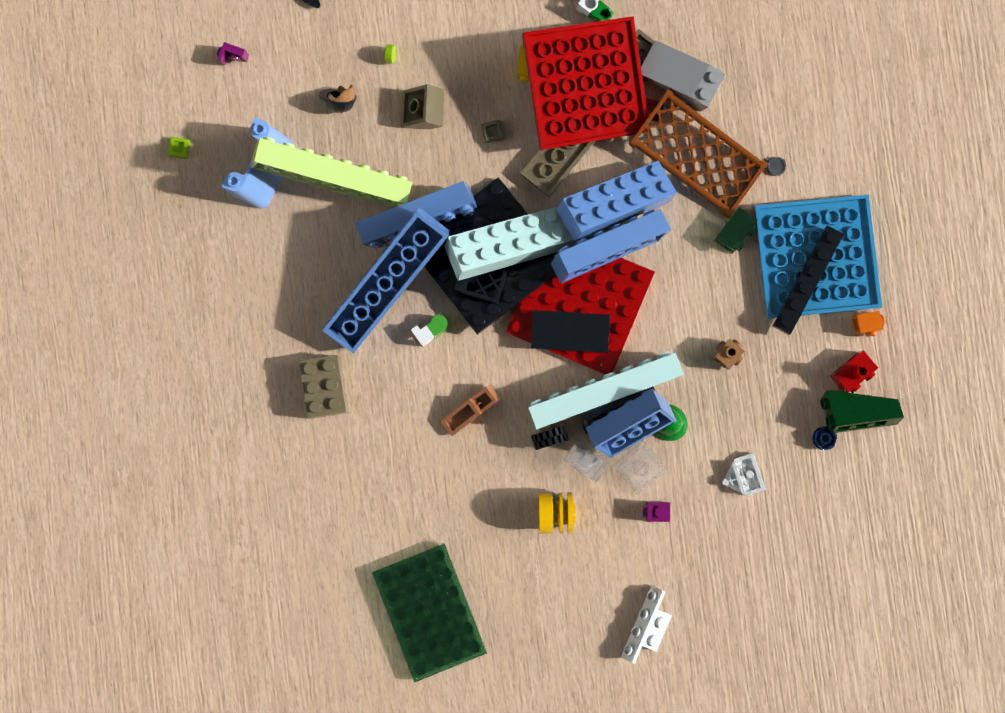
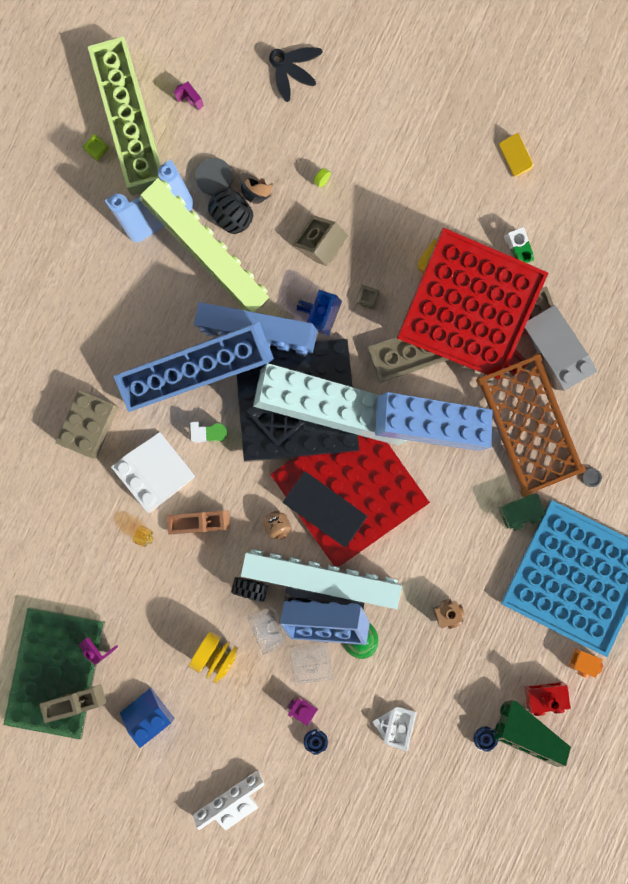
camera: 25 degrees right, 0 degrees up
(190, 103) = (126, 113): none -> yellowish green brick
(296, 110) = (213, 175): none -> dark grey tile
(330, 130) = (230, 210): none -> black wheel
(406, 391) = (153, 472): none -> white slope
(431, 451) = (143, 536): none -> clear yellow piece
(451, 573) = (91, 652): none -> magenta bracket
(462, 626) = (73, 703): none -> dark tan slope
(463, 166) = (322, 312): none -> clear blue brick
(530, 600) = (146, 717): none -> blue slope
(539, 370) = (277, 525): none -> medium nougat head
(610, 245) = (404, 457): medium blue brick -> none
(687, 536) = (320, 746): none -> dark blue plate
(808, 280) = (557, 593): black plate -> none

